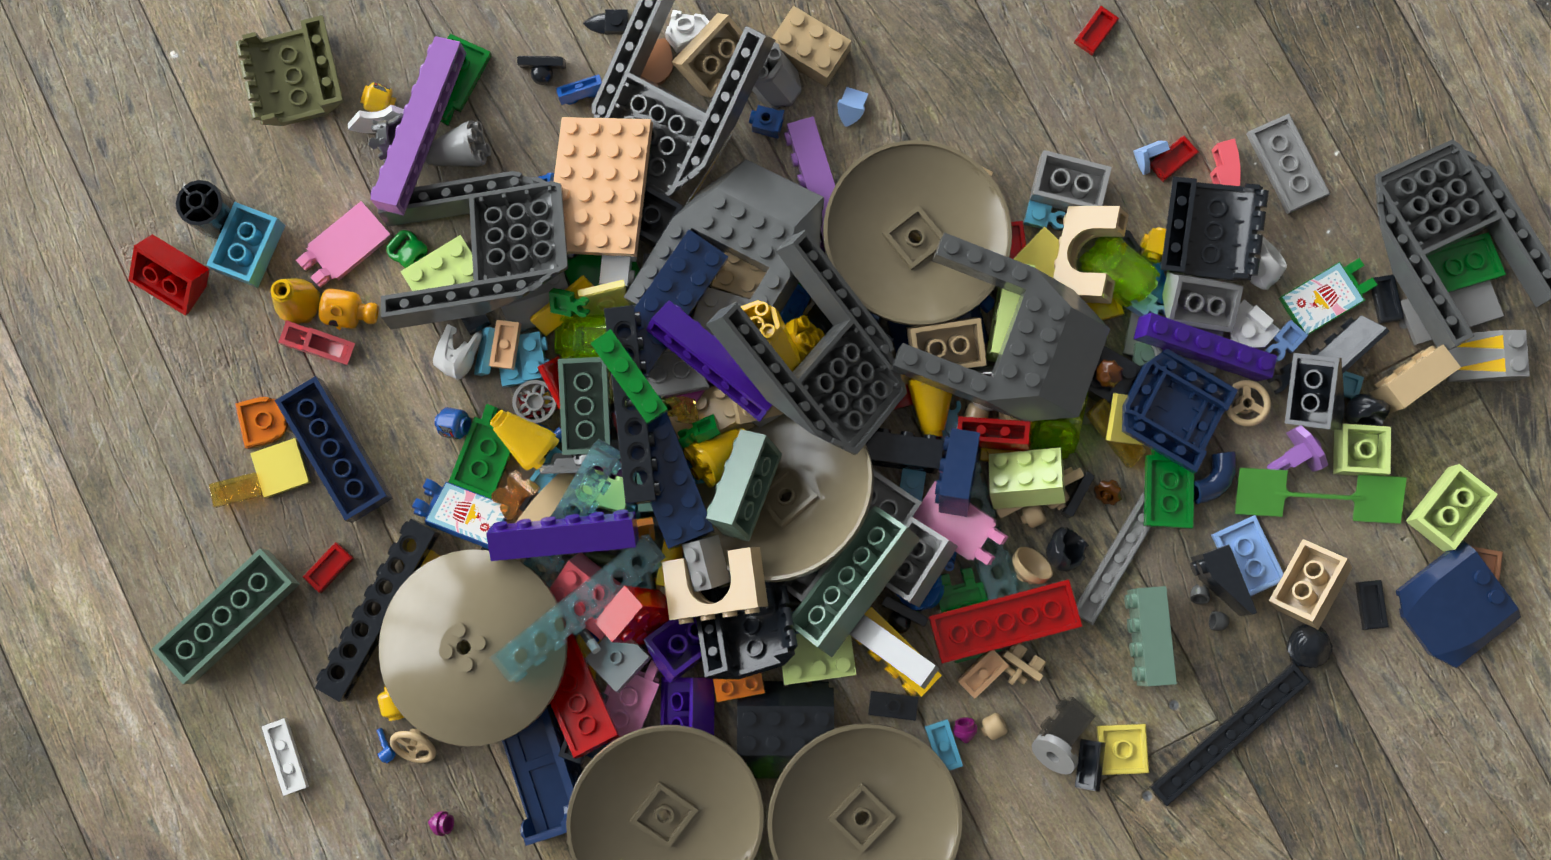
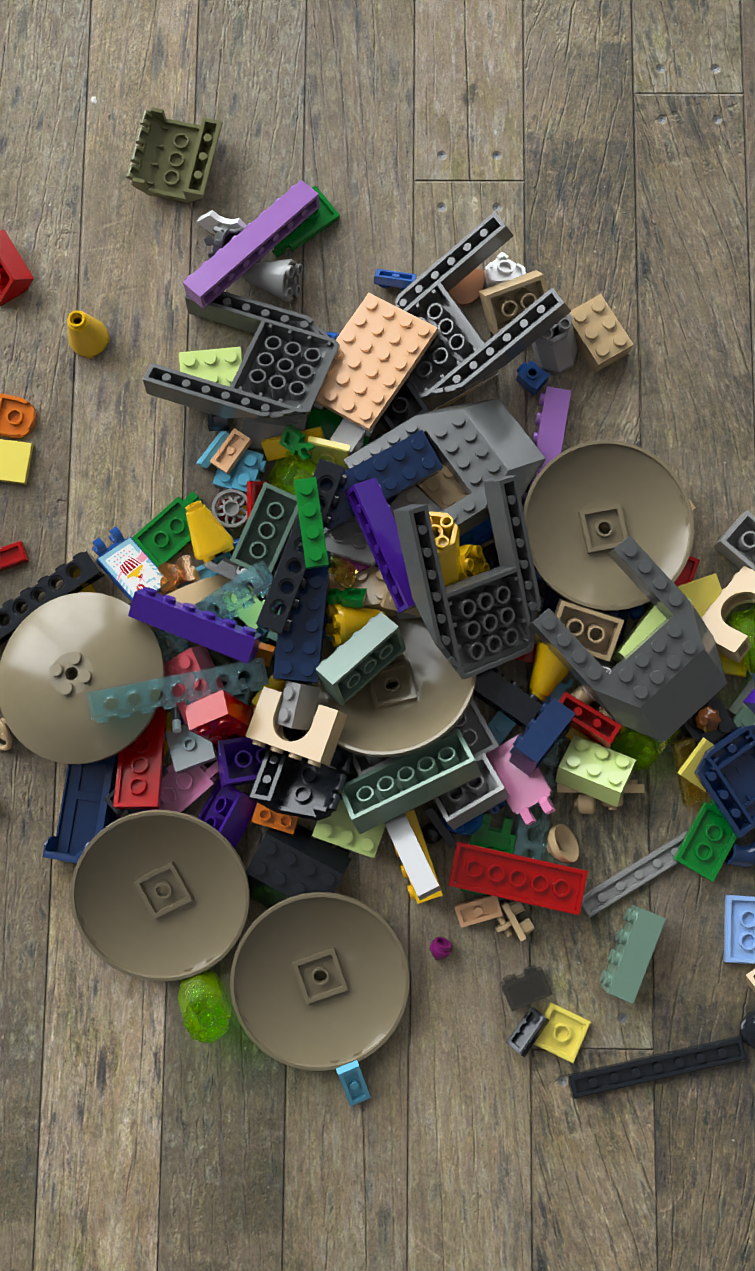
camera: 30 degrees right, 0 degrees up
(204, 207) = (54, 229): black cylinder -> none
(246, 244) = (71, 273): medium azure brick -> none
(316, 343) = (85, 376): coral slope -> none
(333, 449) = (55, 467): dark blue brick -> none
(344, 244) = (147, 311): bright pink tile -> none
(345, 309) = (121, 361): light orange piece -> none
(377, 97) = (232, 207): yellow head -> none
(410, 252) = (196, 341): green piece -> none
(452, 423) = (158, 493): blue head -> none
(455, 362) = (186, 445): white helmet -> none
(541, 66) = (374, 246): black tile -> none
(611, 22) = (444, 237): black plate -> none
(851, 106) = (607, 398): light blue tile -> none
(893, 705) = (392, 898): black plate -> none
(943, 743) = (416, 951): medium azure plate -> none
(994, 726) = (465, 958): tan piece -> none
(1040, 215) = (717, 562): medium azure plate -> none
(1054, 754) = (503, 1007): light grey tile -> none
(1066, 549) = (598, 845): black hair -> none
(1078, 495) = (631, 805): black tile -> none
(1108, 492) = (657, 816): reddish brown piece -> none
(1200, 594) = (690, 939): dark grey hinge -> none
(1218, 621) = (695, 969): dark grey hinge -> none
(1223, 577) = (717, 933): black slope -> none

